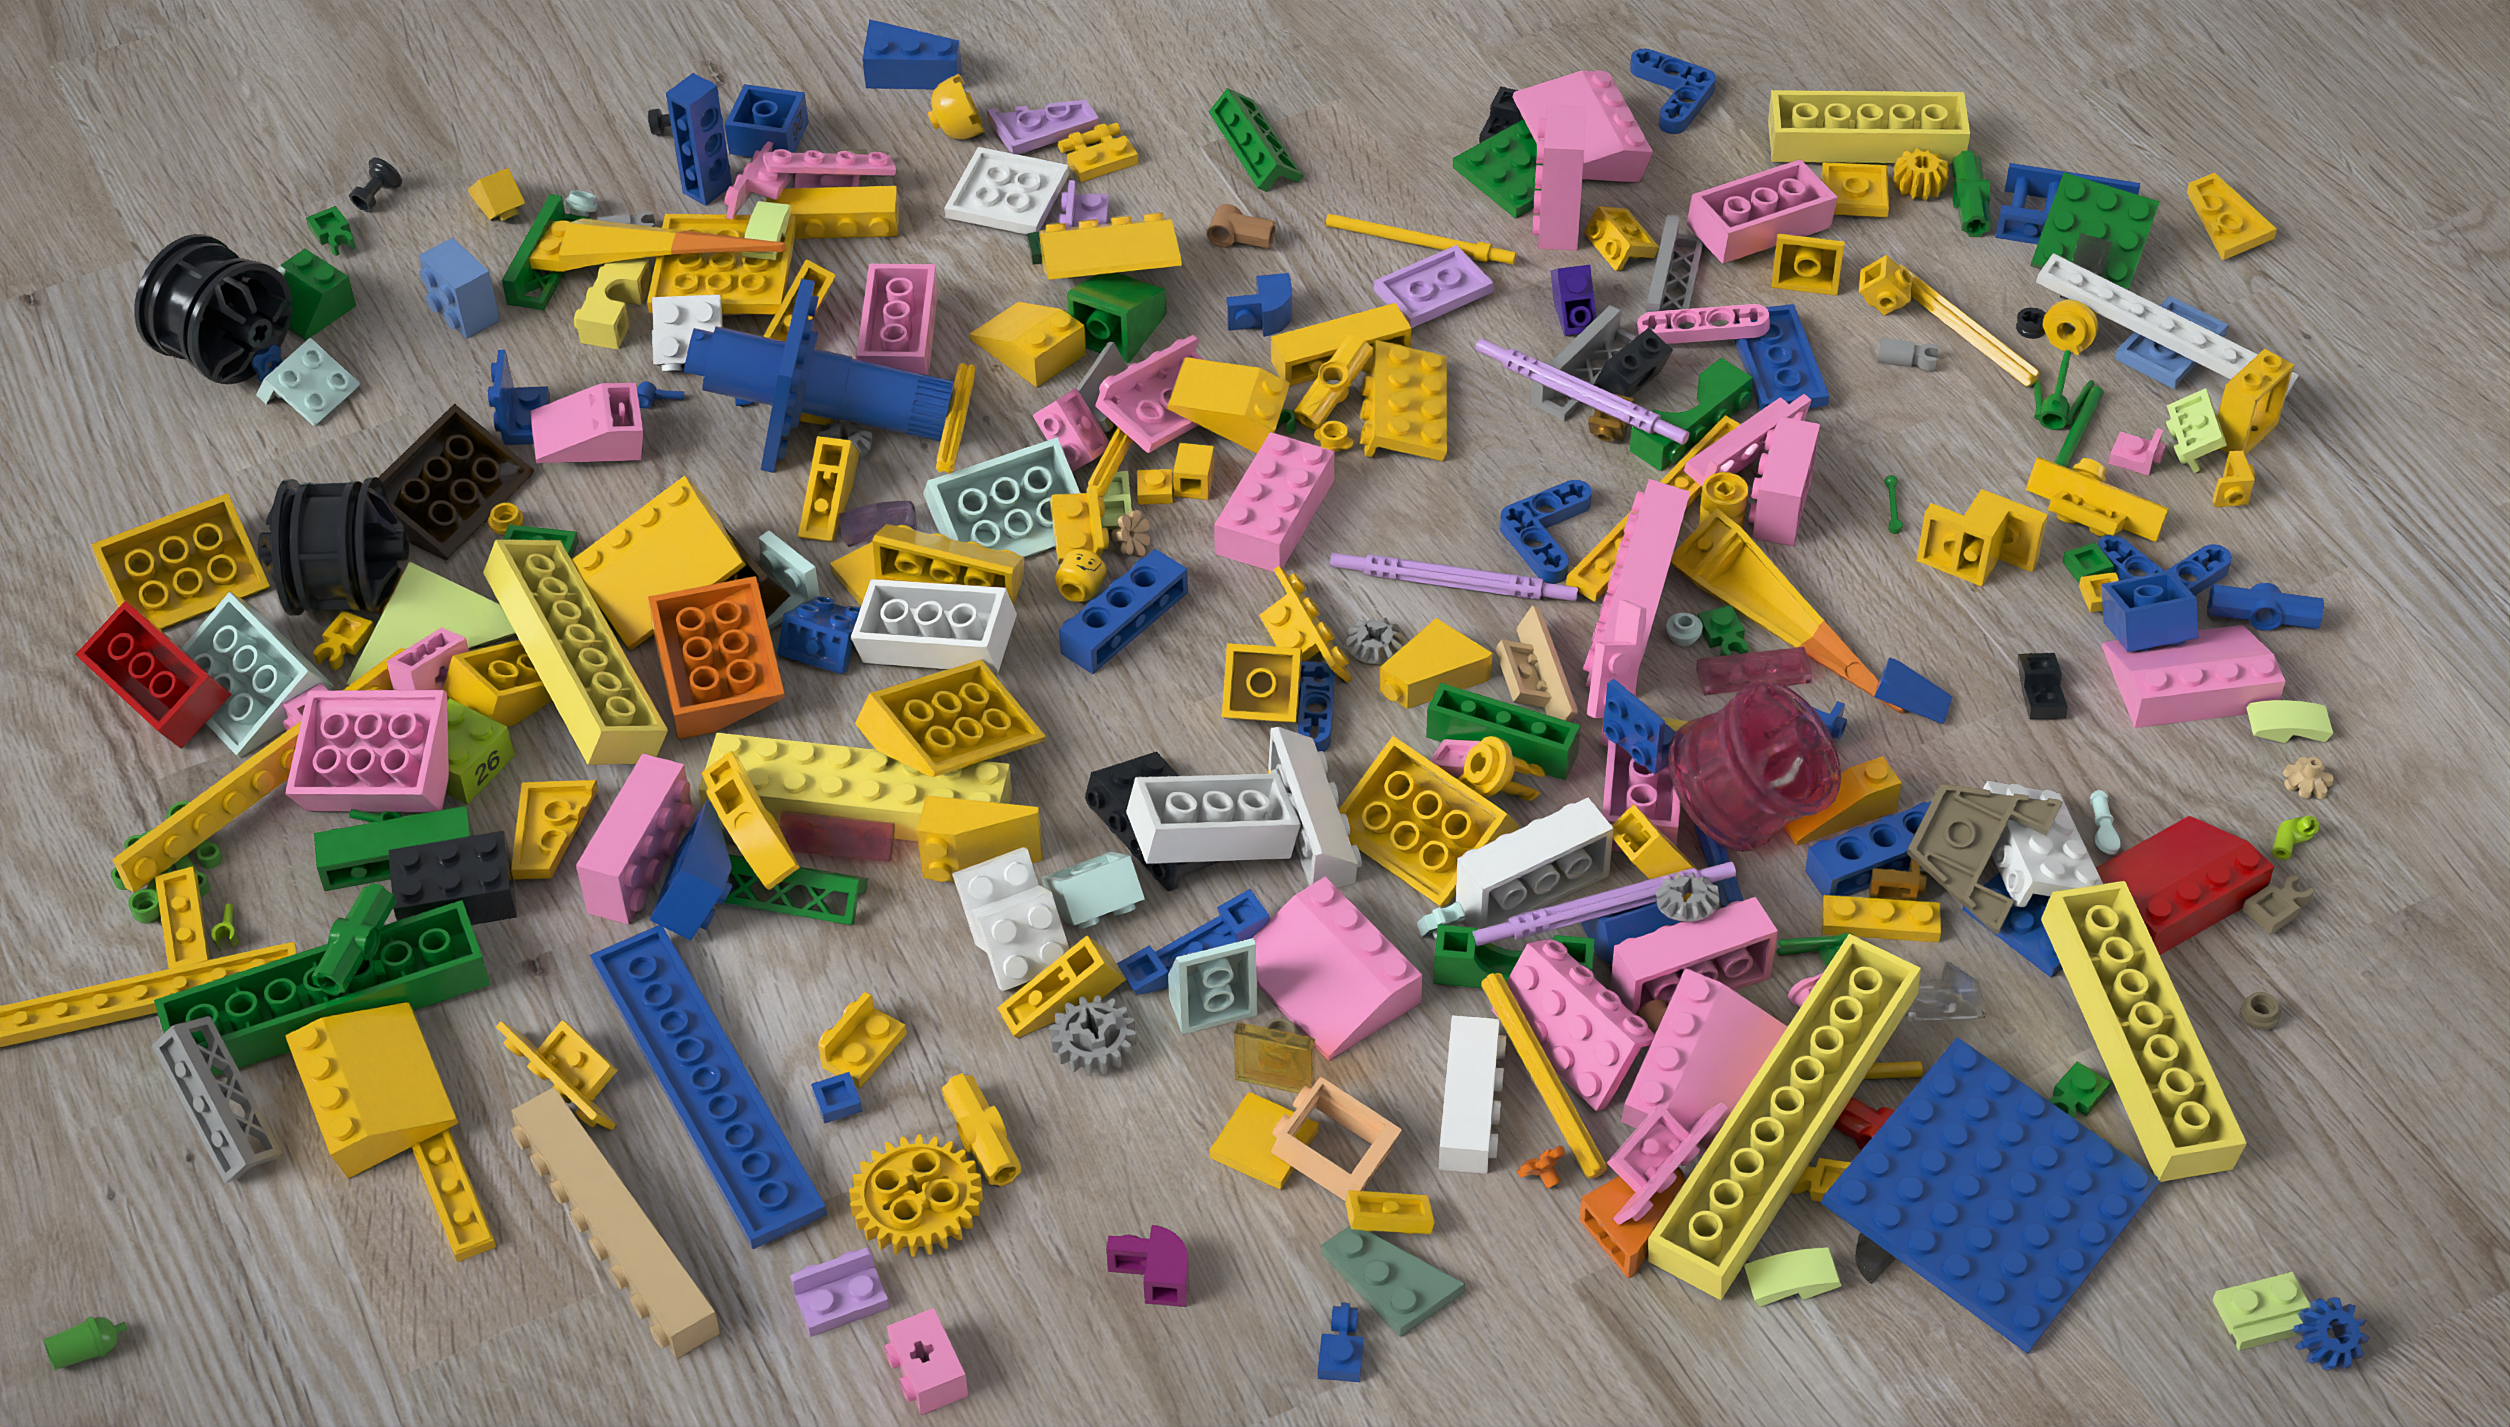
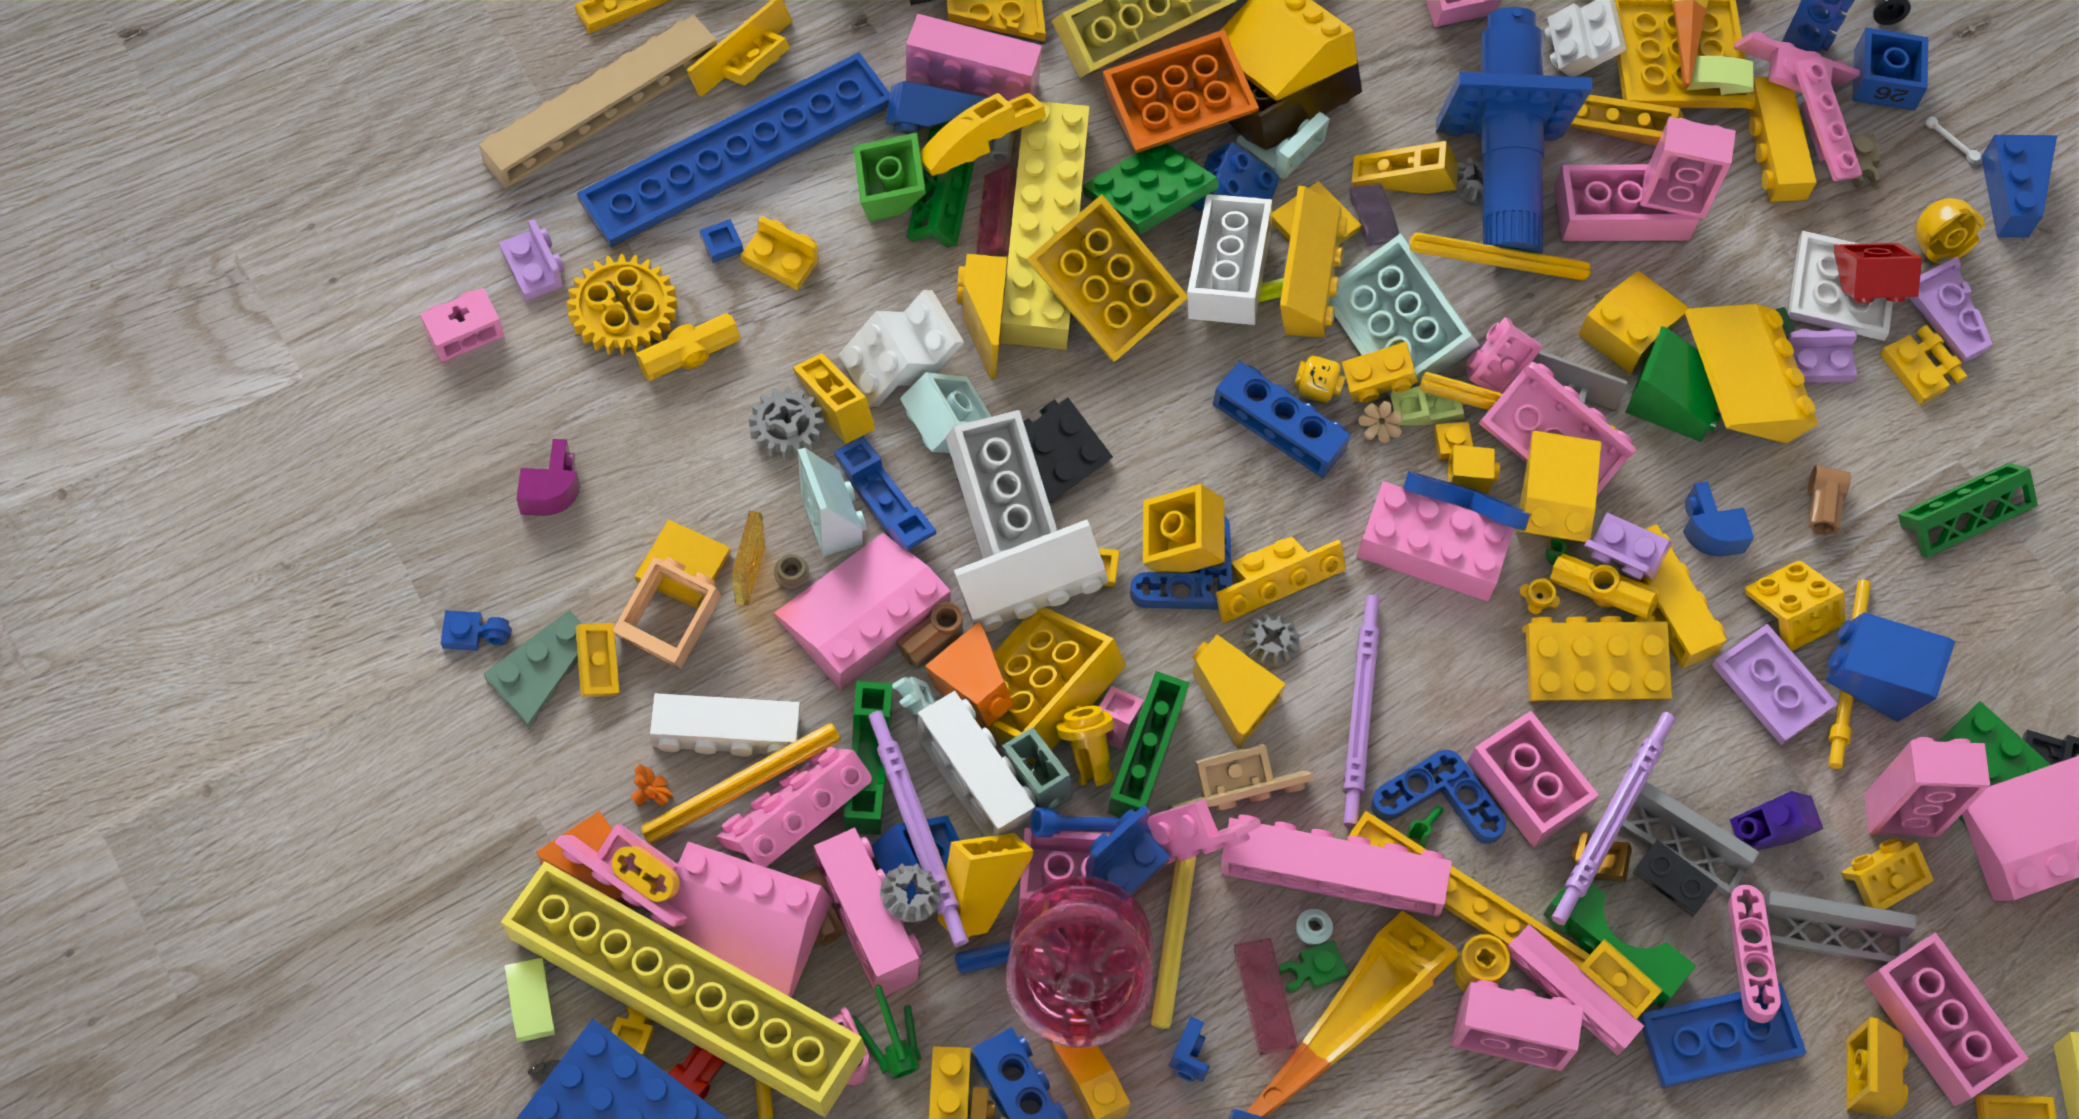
camera: 80 degrees right, 15 degrees up
(781, 919) = (889, 176): none -> bright green slope
(826, 688) = (1152, 186): none -> green plate
(866, 92) = (1972, 155): none -> white hinge
(900, 240) = (1687, 167): none -> bright pink brick
(1004, 154) = (1878, 271): none -> red slope
(1228, 475) = (1469, 498): none -> blue beam
(1300, 352) = (1628, 546): none -> lavender bracket
(1345, 259) = (1801, 601): none -> yellow bracket
(1357, 890) = (929, 635): none -> medium nougat piece
(1423, 864) = (974, 674): none -> orange slope
(1426, 196) = (1889, 664): none -> blue slope
(1535, 451) = (1532, 779): none -> bright pink brick
(1542, 794) = (1046, 777): none -> sand green torso
(1584, 540) = (1422, 829): none -> green hand
(1601, 790) = (1047, 822): none -> blue piece
(1674, 1136) = (640, 880): none -> yellow beam
(1737, 405) = (1620, 979): none -> yellow plate

